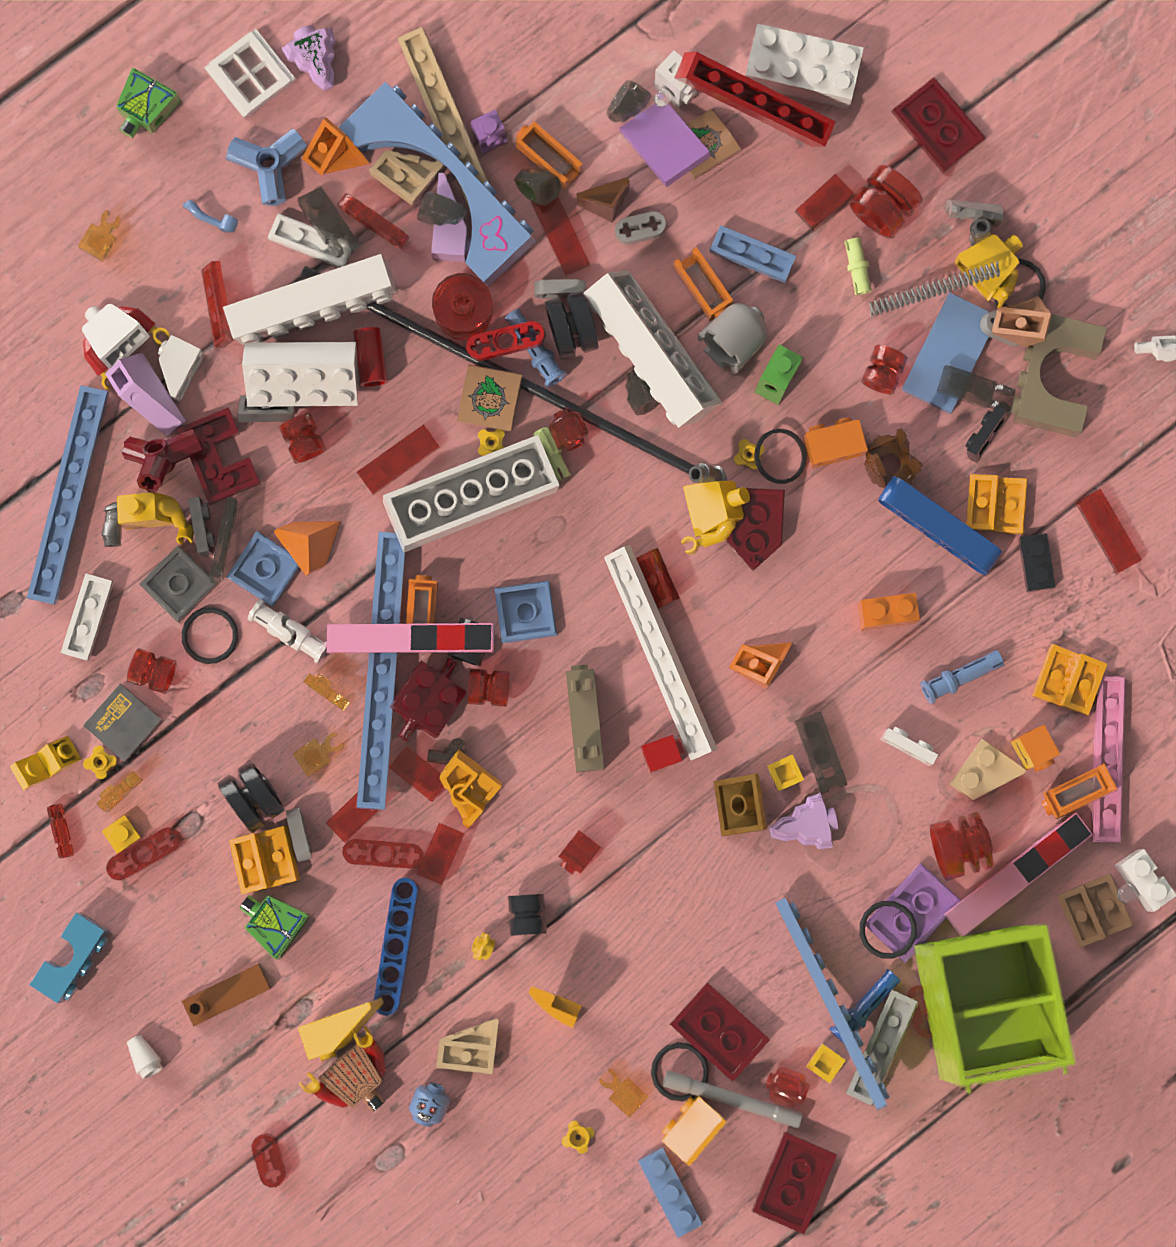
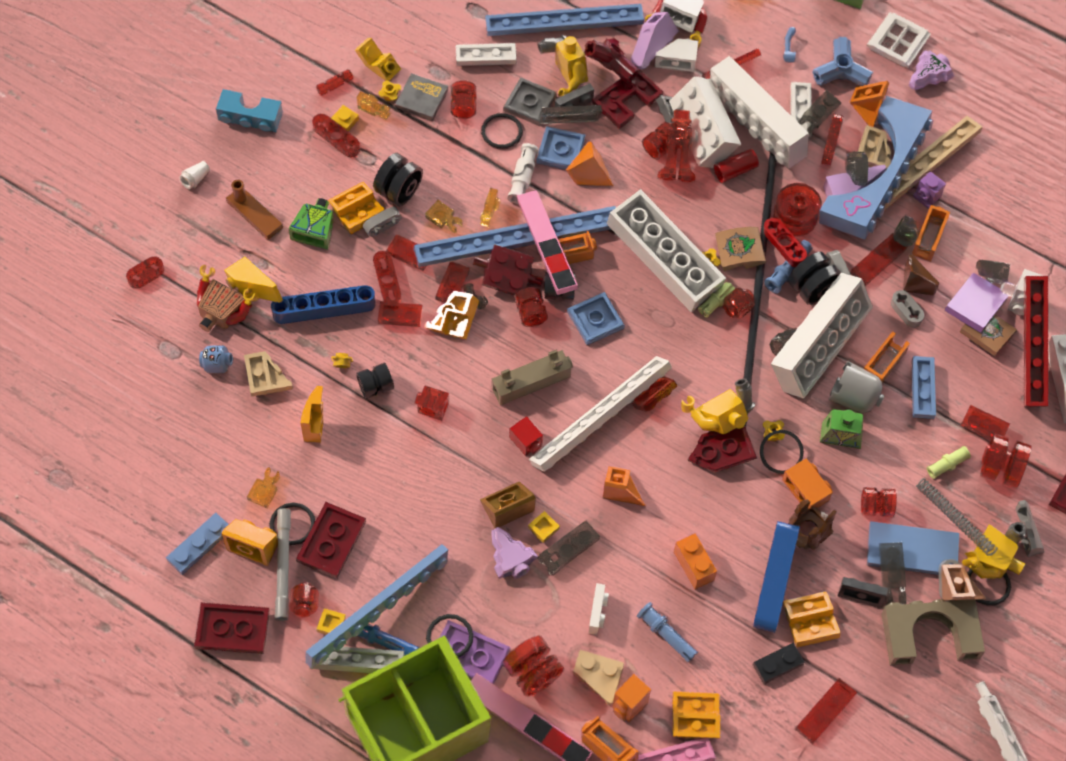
camera: 70 degrees right, 20 degrees down
(316, 416) = (678, 137): none -> clear red piece
(398, 459) = (673, 206): clear red tile -> none
(570, 1140) = (221, 461): yellow plate -> none

